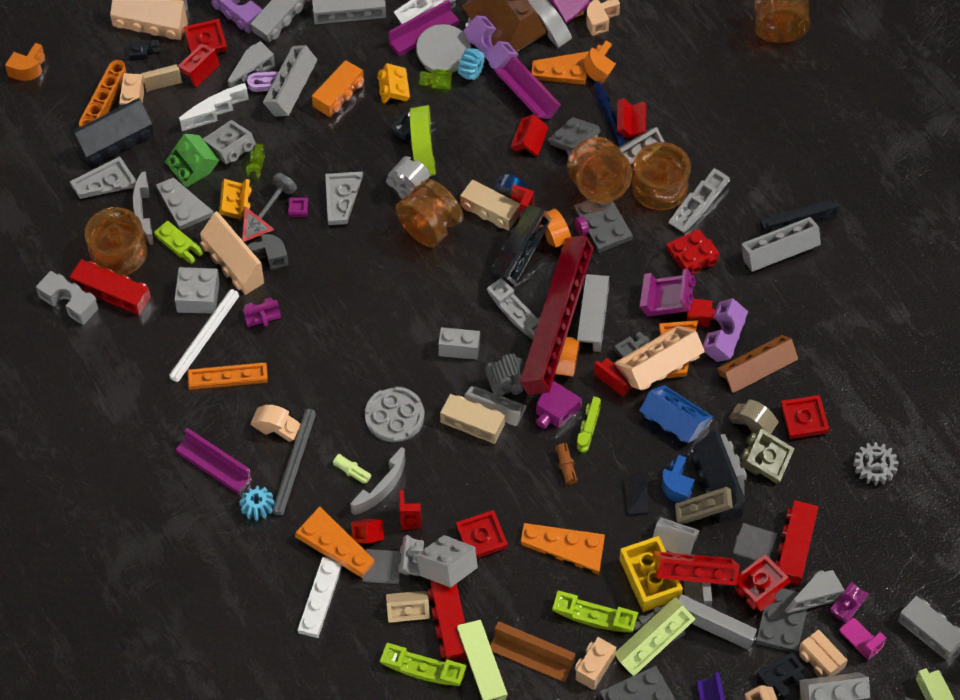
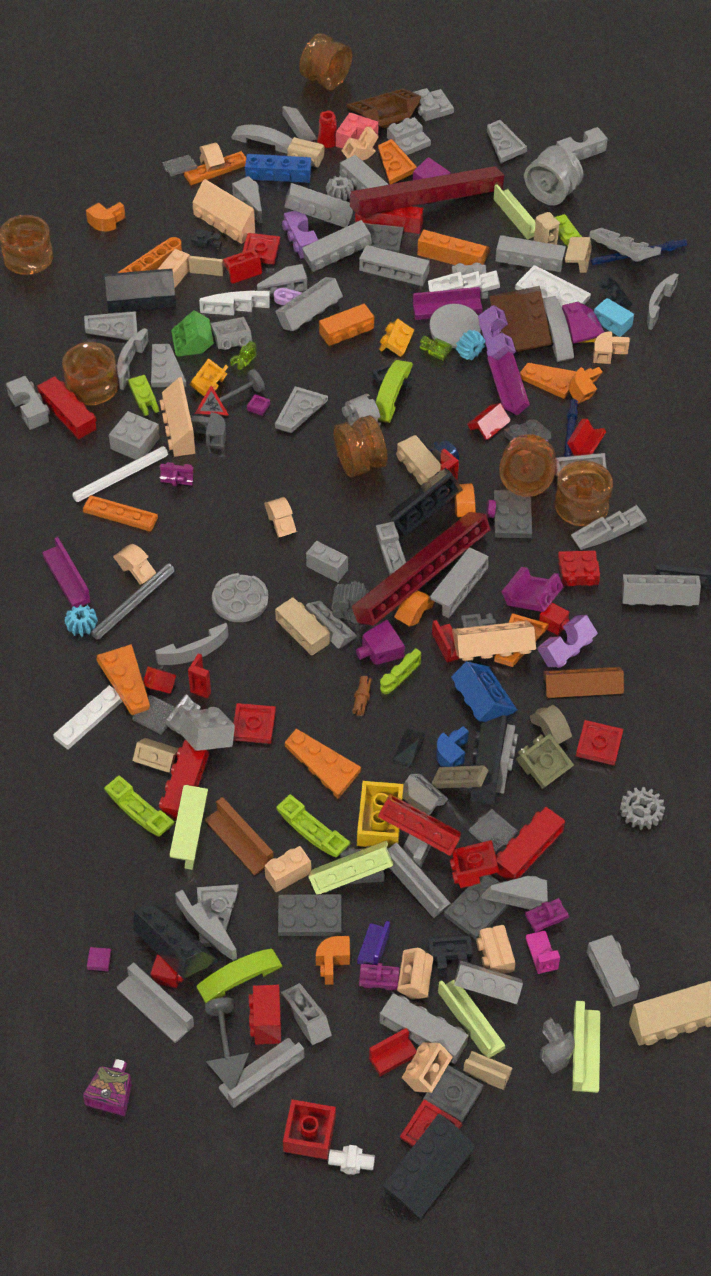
camera: 25 degrees right, 5 degrees down
(351, 469) = (176, 625): yellowish green axle -> none
(389, 312) = (280, 513): none -> light nougat brick

